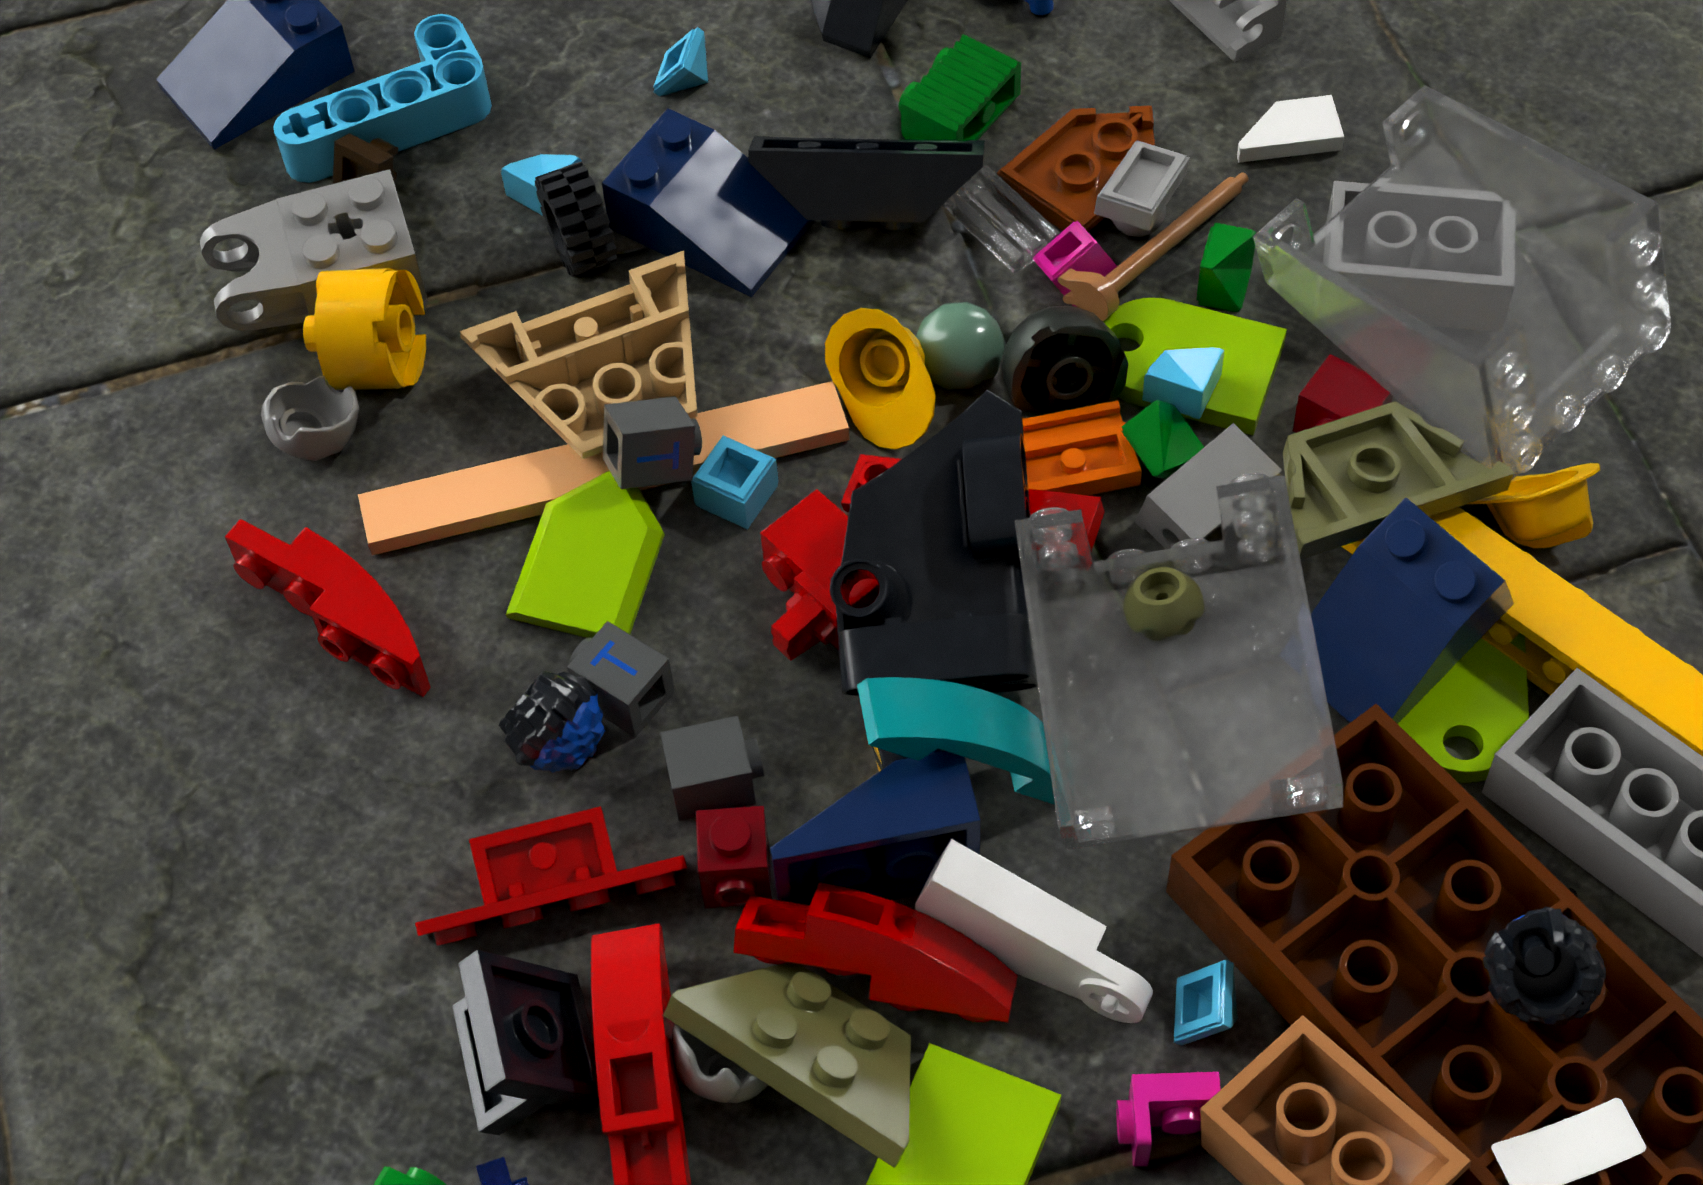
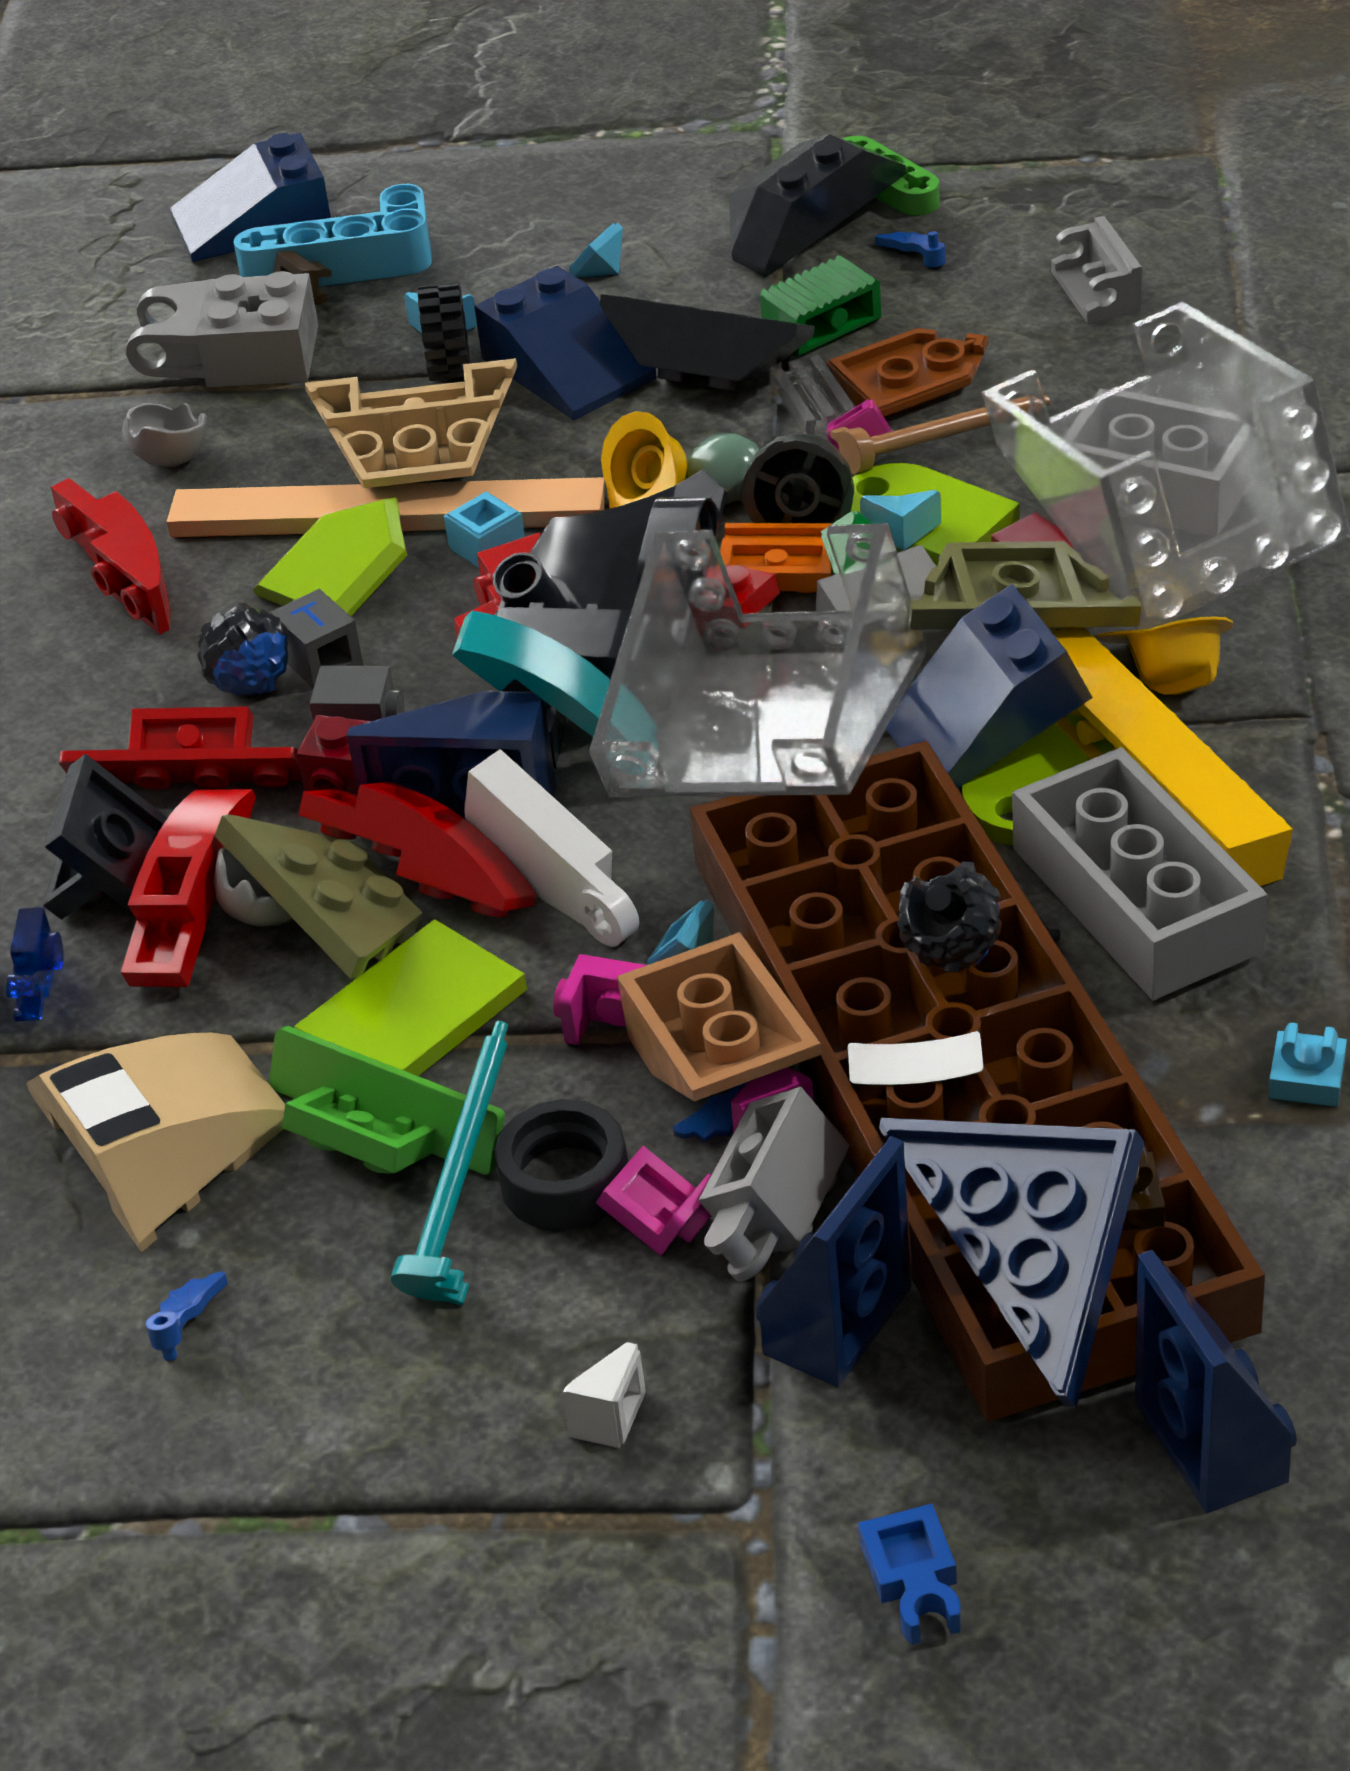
camera: 20 degrees right, 15 degrees down
(367, 328) = (237, 376): yellow brick -> none
(650, 442) = (418, 477): dark grey brick -> none
(1141, 188) = (936, 382): light grey tile -> none
(1163, 603) = (790, 654): olive plate -> none
(1226, 267) = (978, 456): green slope -> none
(1293, 130) = (1098, 370): white tile -> none

